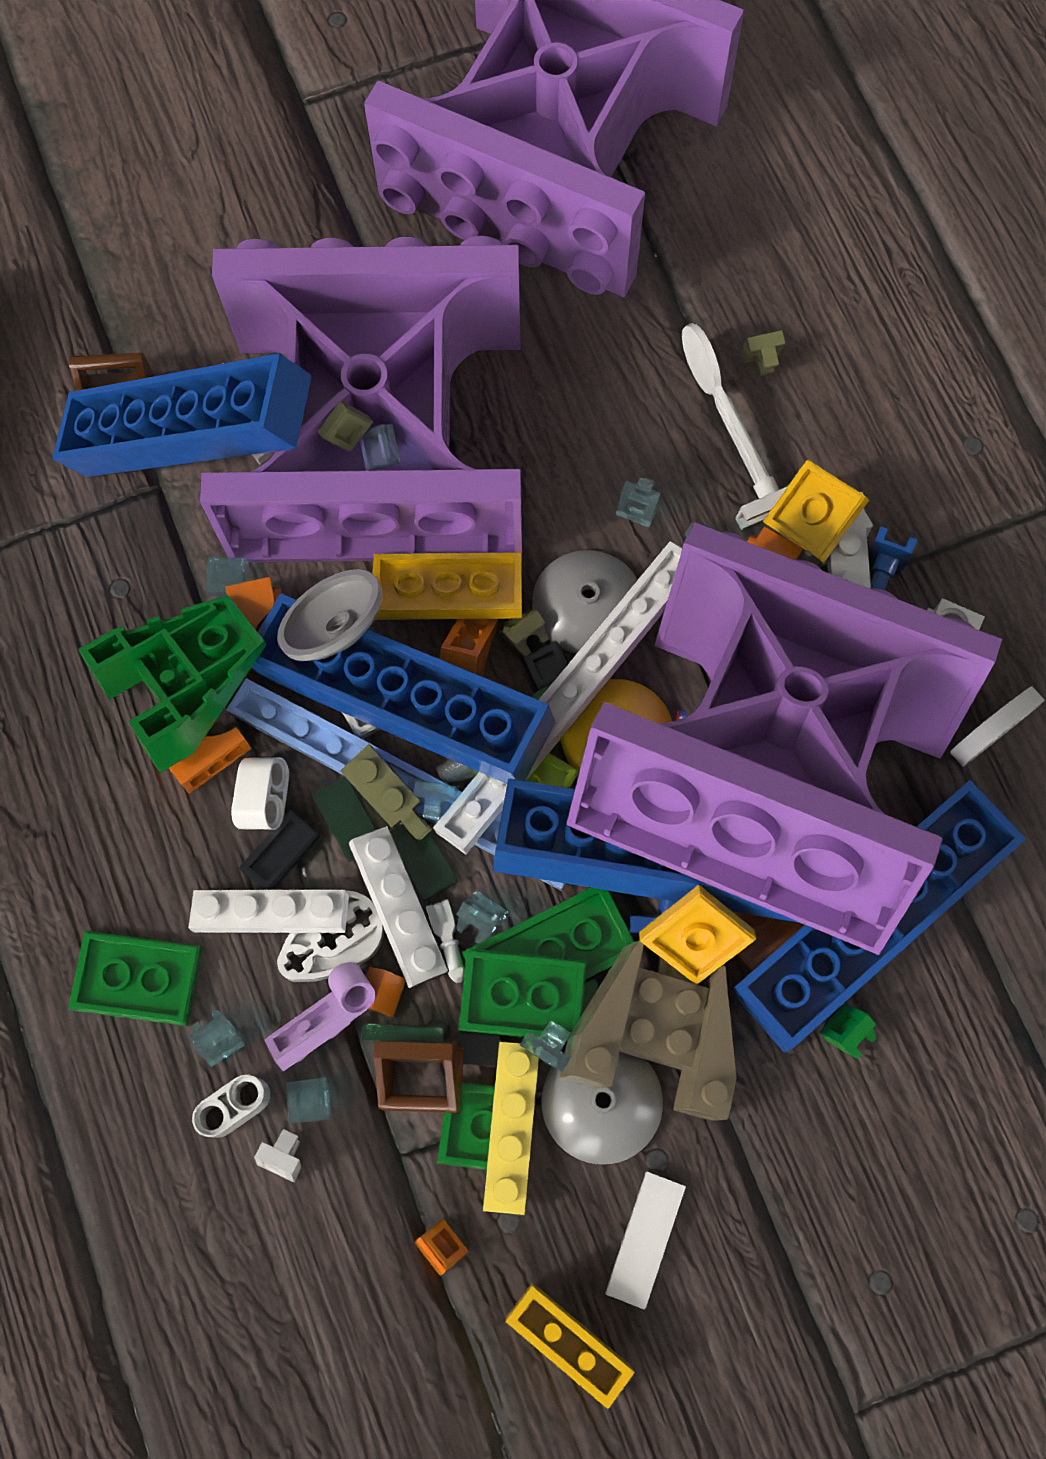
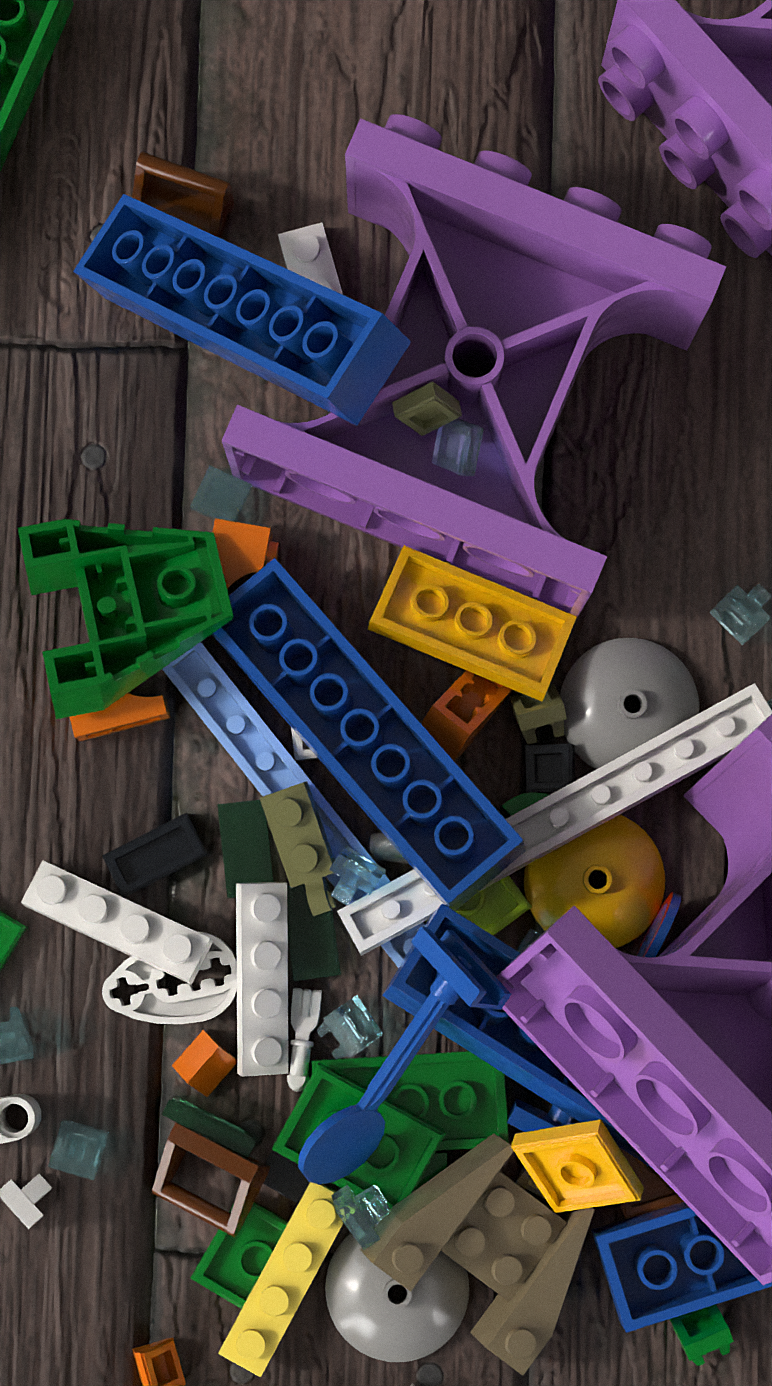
camera: 20 degrees right, 10 degrees up
(260, 793) = (160, 781): white beam -> none
(325, 1019) = (131, 1068): lavender plate -> none
(330, 615) = (319, 624): light grey dish -> none
(514, 982) = (355, 1132): none -> blue piece

